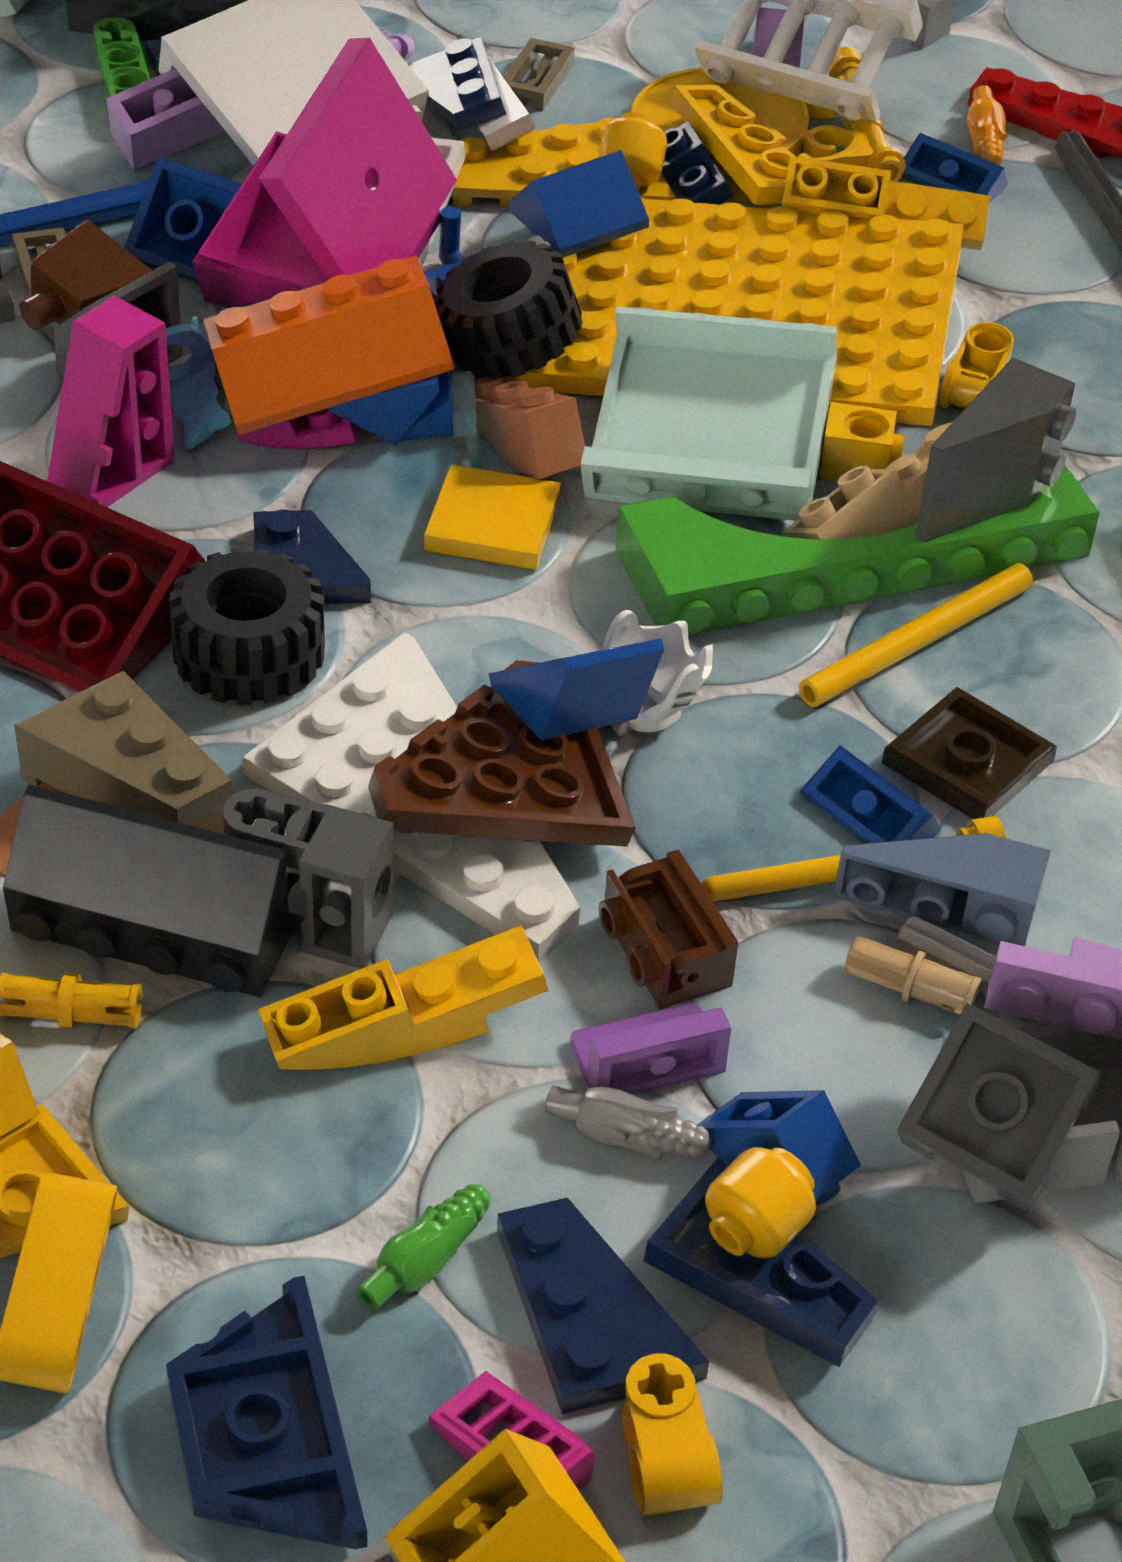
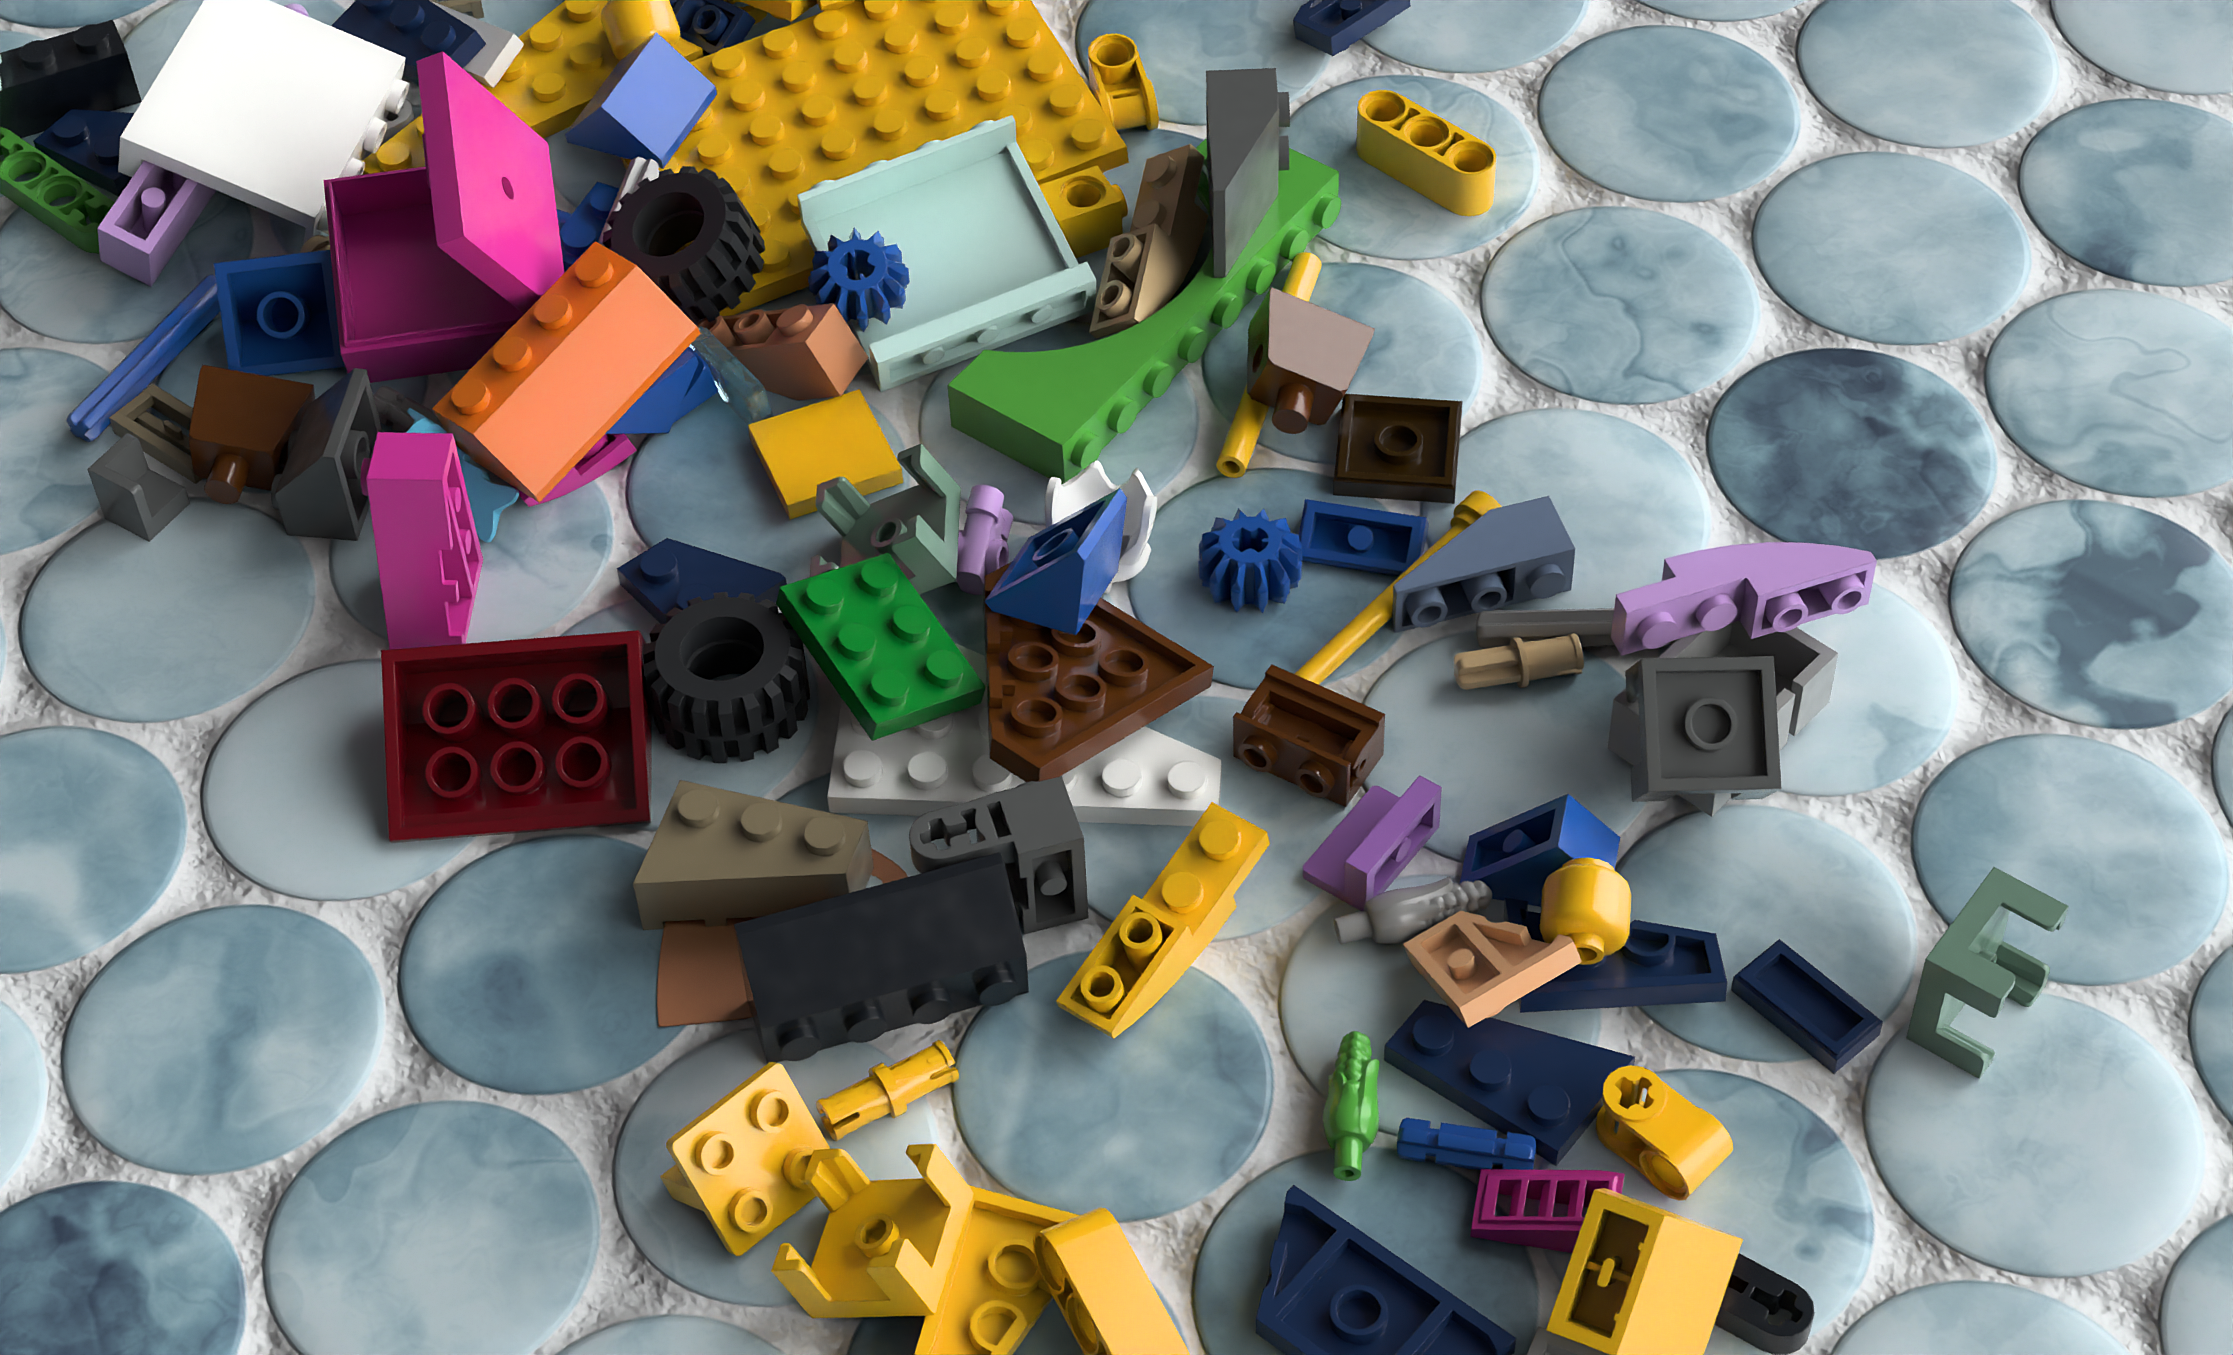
camera: 30 degrees left, 5 degrees up
(372, 660) = (880, 646): none -> green plate
(474, 598) = (913, 525): none -> sand green panel
(489, 1342) = (1464, 1146): none -> blue axle
(546, 635) = (984, 538): none -> lavender plate
(618, 394) = (860, 278): none -> blue gear
(637, 1196) = (1485, 963): none -> light nougat wing
(751, 768) = (1250, 560): none -> blue gear
(917, 1421) = (1806, 1006): none -> dark blue tile
(938, 640) = (1302, 359): none -> torso

